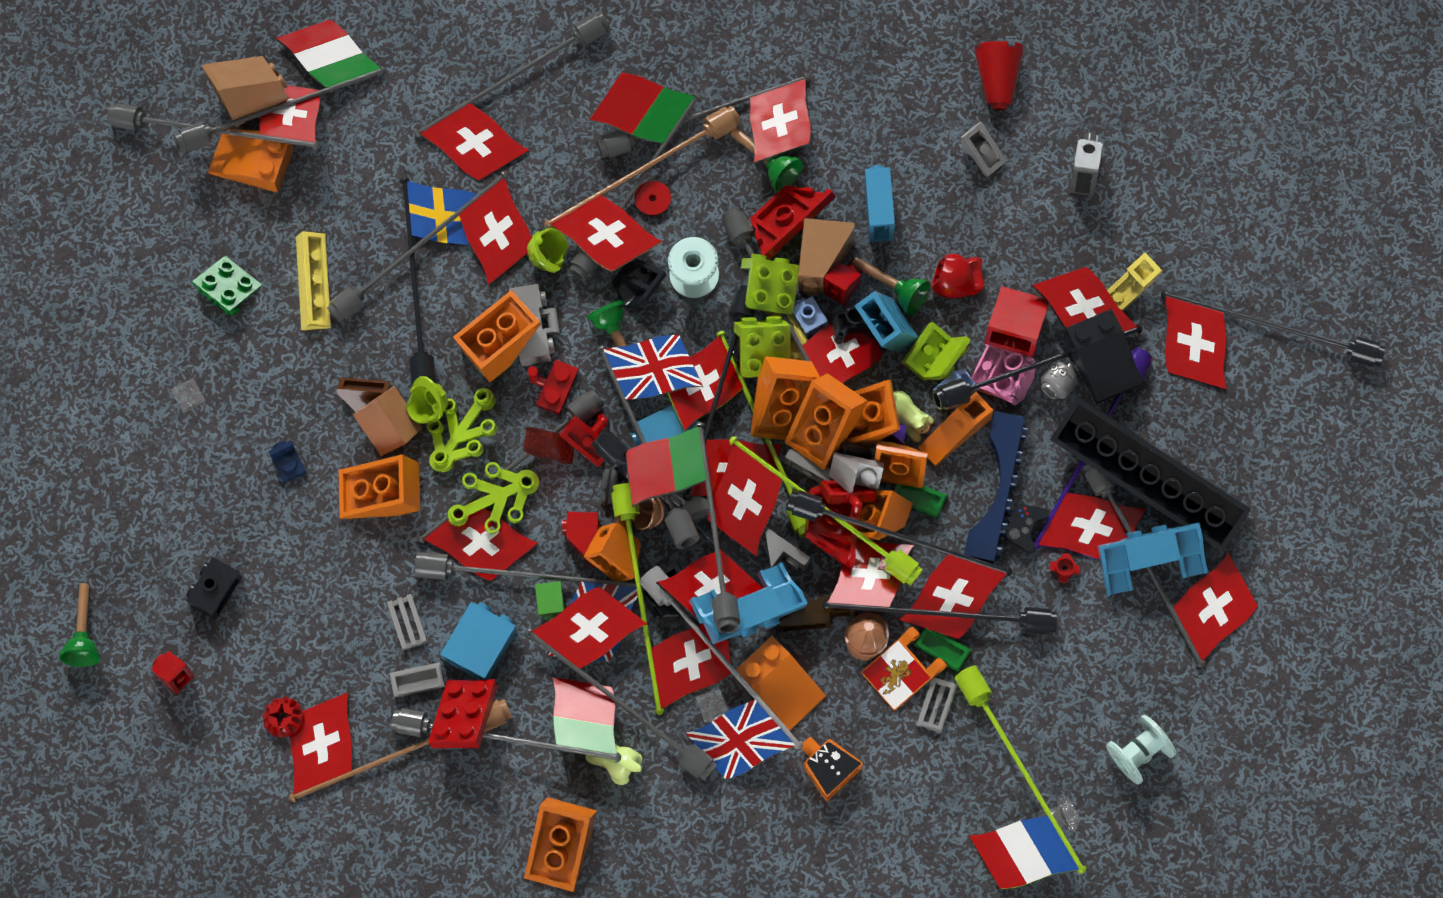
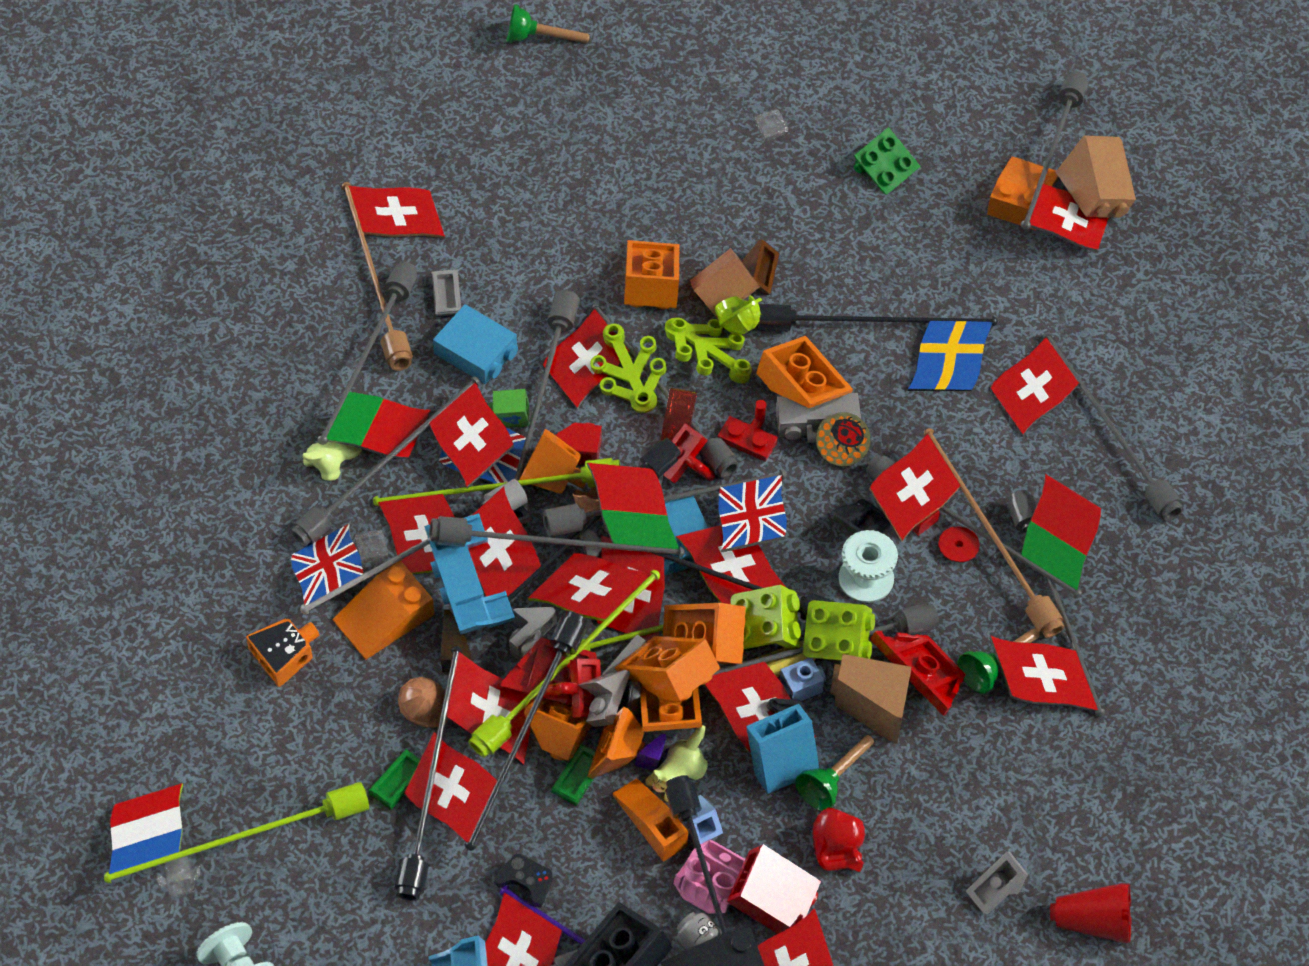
camera: 90 degrees right, 15 degrees down
(172, 671) = (484, 92): red slope -> none
(213, 588) = (566, 132): black brick -> none
(287, 461) = (692, 201): dark blue bracket -> none
(288, 725) = (434, 187): red gear -> none
(313, 280) = (886, 236): light yellow slope -> none
(326, 56) = (1129, 264): flag -> none
(400, 602) = (508, 285): light grey tile -> none
(463, 714) = (398, 317): red plate -> none
(491, 228) = (926, 393): red flag -> none
(548, 249) = (897, 432): lime piece -> none
(557, 299) = (843, 439): none -> tile
(559, 843) = (253, 397): orange slope -> none
(608, 319) = (816, 485): green piece -> none
(841, 283) = (839, 714): red slope -> none
(879, 204) = (932, 759): dark azure brick -> none
(899, 673) = (378, 730): flag -> none
(930, 725) = (328, 775): light grey tile -> none
(935, 353) = (747, 801): lime bracket -> none
(1004, 439) = (632, 868): dark blue arch -> none
(1064, 575) = (472, 909): red plate -> none

